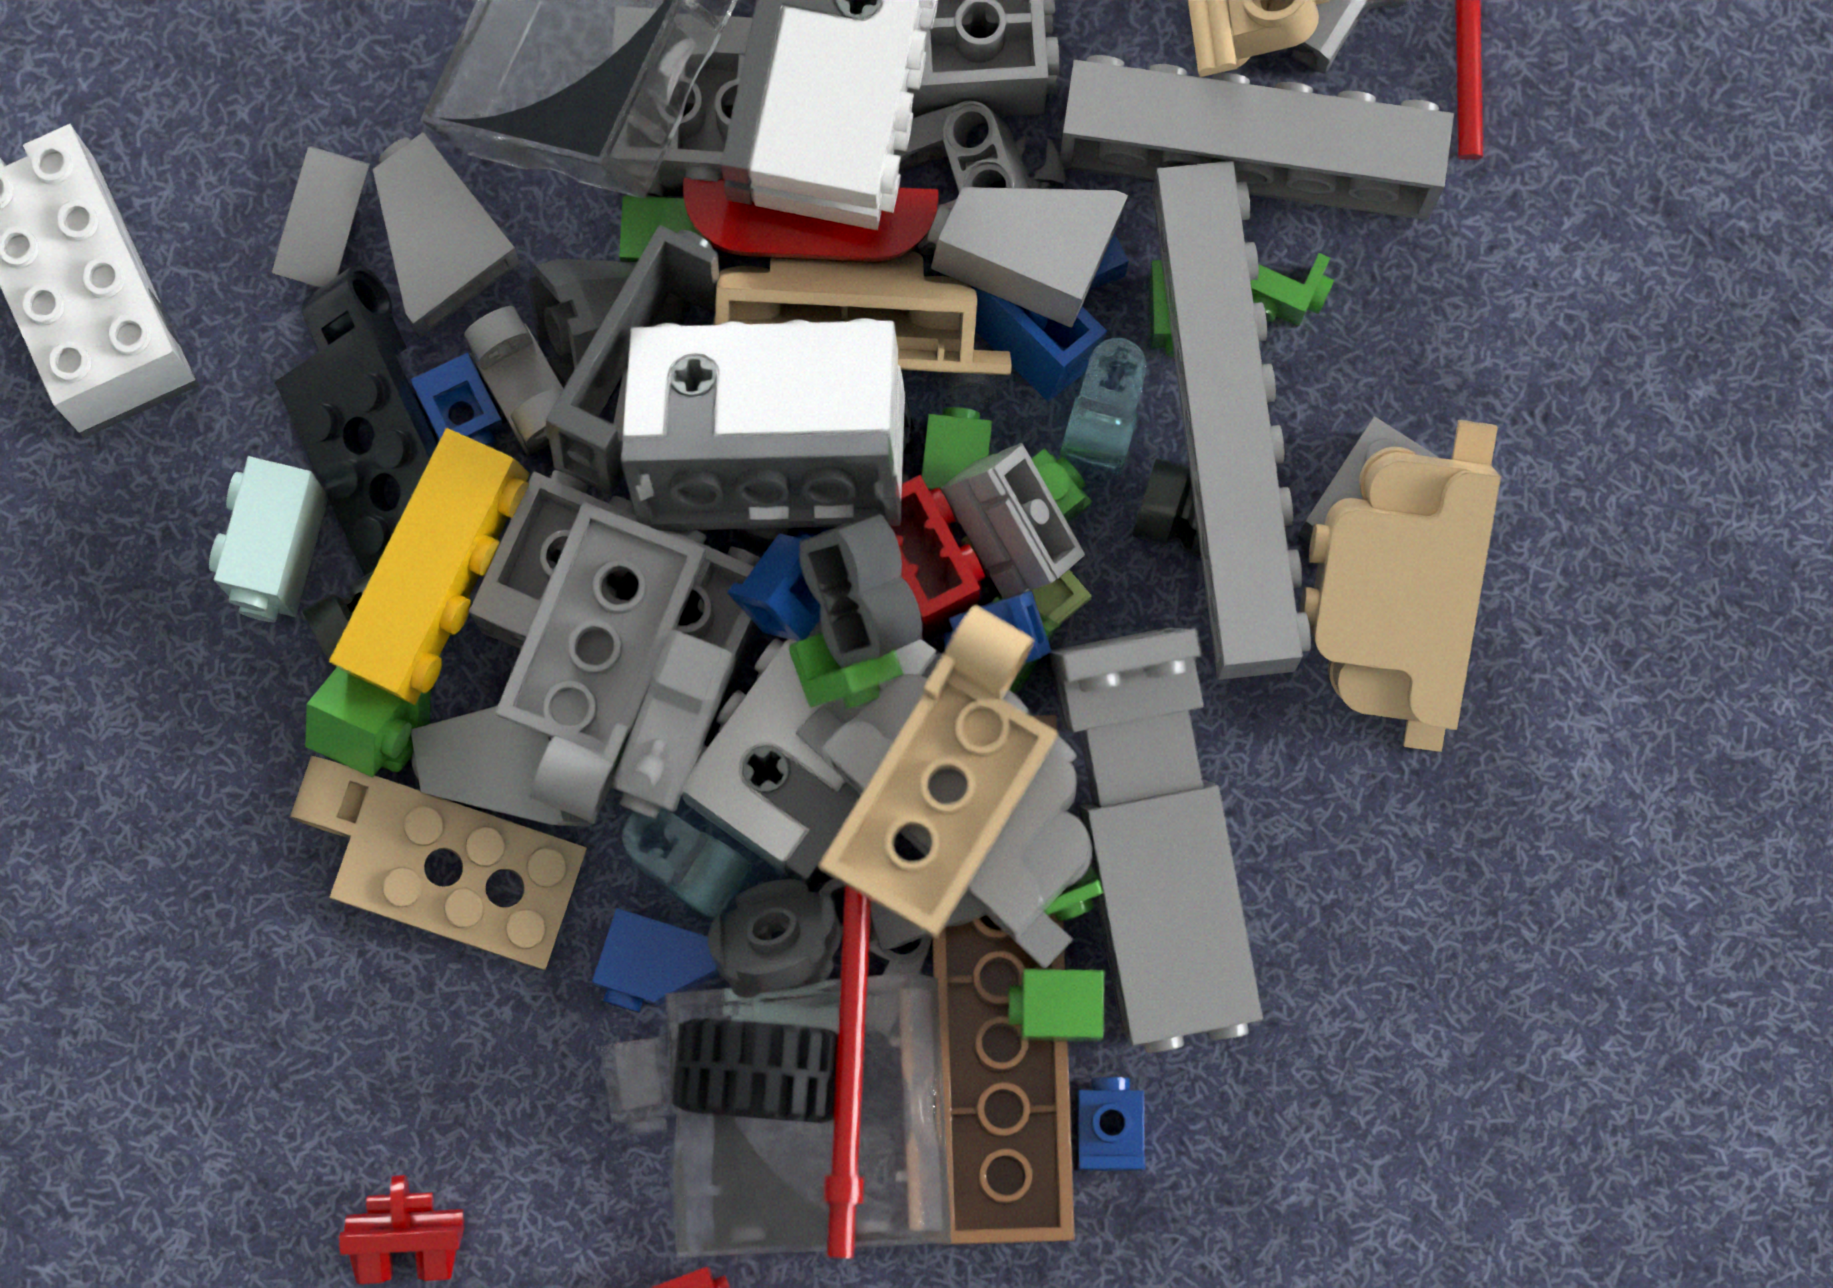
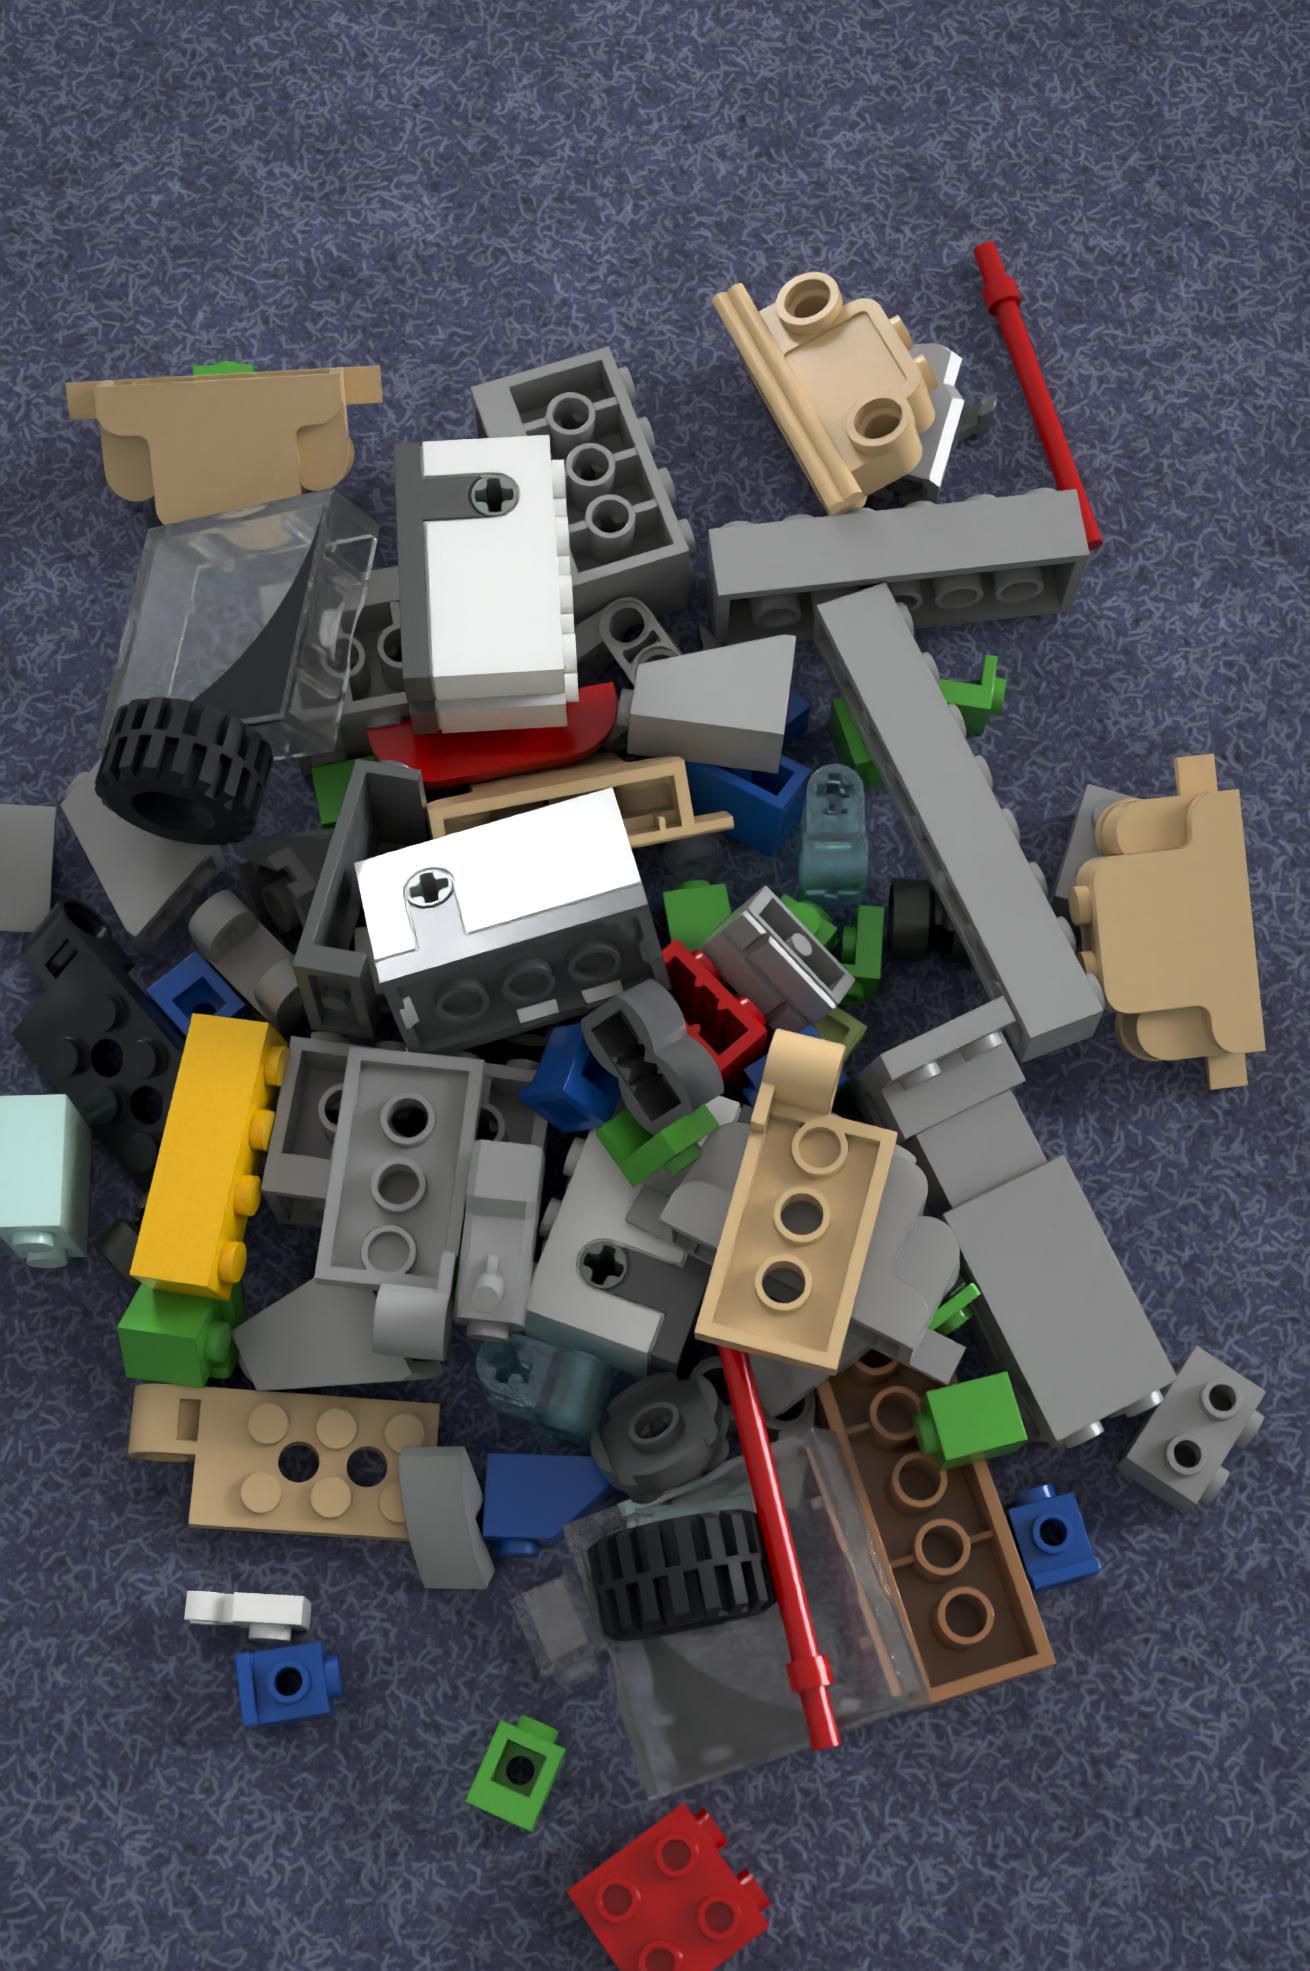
camera: 15 degrees left, 10 degrees down
(357, 1064) = (258, 1685): none -> blue brick
(380, 998) = (266, 1615): none -> white plate
(402, 1224) = (346, 1851): red hips -> none
(496, 181) = (184, 771): none -> black tyre
(544, 1206) = (493, 1789): none -> bright green brick
(559, 948) = (440, 1517): none -> light grey slope
(1107, 519) = (862, 953): none -> bright green bracket
(1275, 1064) = (1192, 1432): none -> light grey brick

